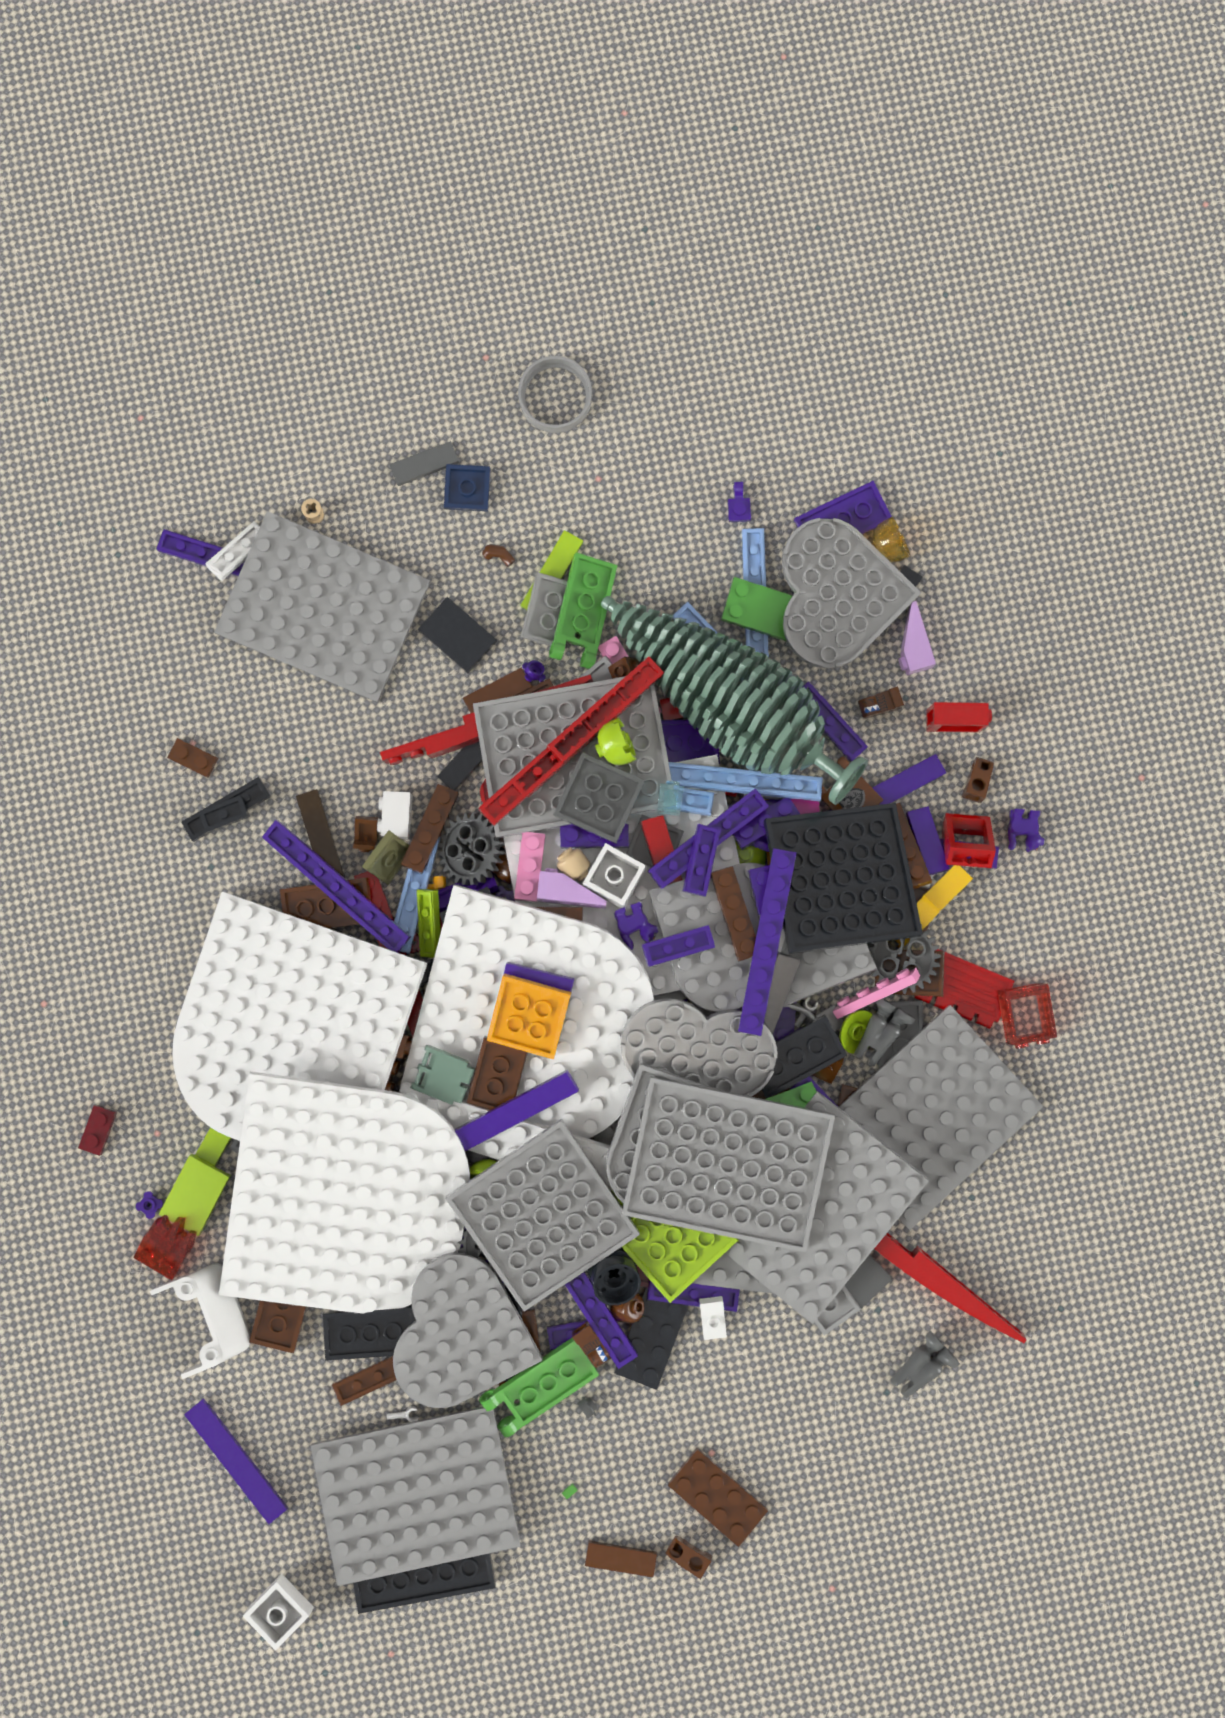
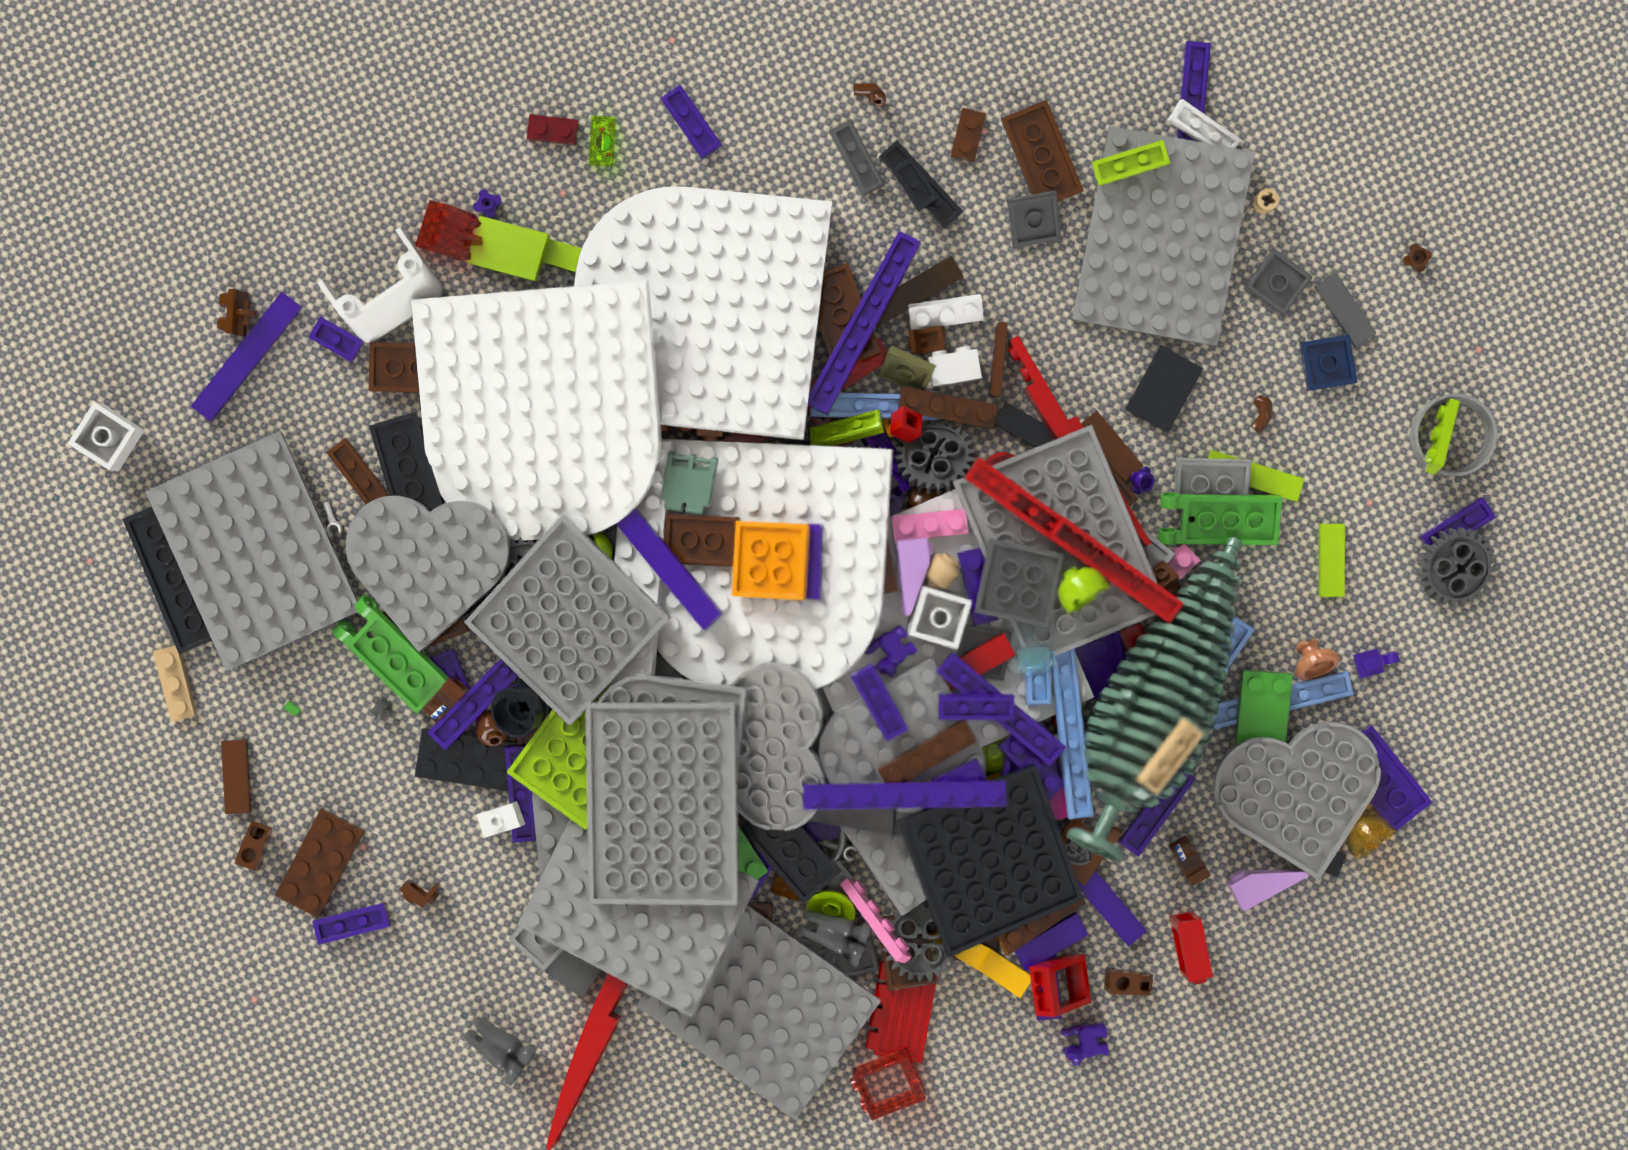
camera: 75 degrees right, 5 degrees up
(118, 1087) = (602, 141): none -> clear neon green tile
(120, 1002) = (691, 121): none -> dark purple tile
(133, 834) = (872, 91): none -> reddish brown arm
(189, 861) = (856, 158): none -> dark grey tile
(192, 1460) = (237, 313): none -> reddish brown hips
(225, 696) = (1041, 151): none -> reddish brown plate
(239, 1373) = (336, 339): none -> dark purple plate
(250, 620) = (1130, 163): none -> lime plate
(280, 715) = (1034, 219): none -> dark grey tile
(344, 811) = (946, 312): none -> white plate
(387, 392) = (1424, 257): none -> reddish brown plate
(387, 516) = (1278, 282): none -> dark grey tile
(398, 774) = (998, 359): none -> reddish brown tile
(436, 868) = (906, 424): none -> red plate
(522, 1598) = (175, 683): none -> tan plate
(553, 404) = (1441, 436): none -> lime plate
(636, 408) = (1470, 517): none -> dark purple tile
(641, 522) = (1331, 560): none -> lime tile
(670, 415) = (1467, 583): none -> dark grey gear
(727, 554) = (1314, 661): none -> nougat hair
(765, 1413) = (415, 894): none -> reddish brown bracket
(779, 1480) = (351, 923): none -> dark purple plate
(781, 695) = (1170, 756): none -> tan plate

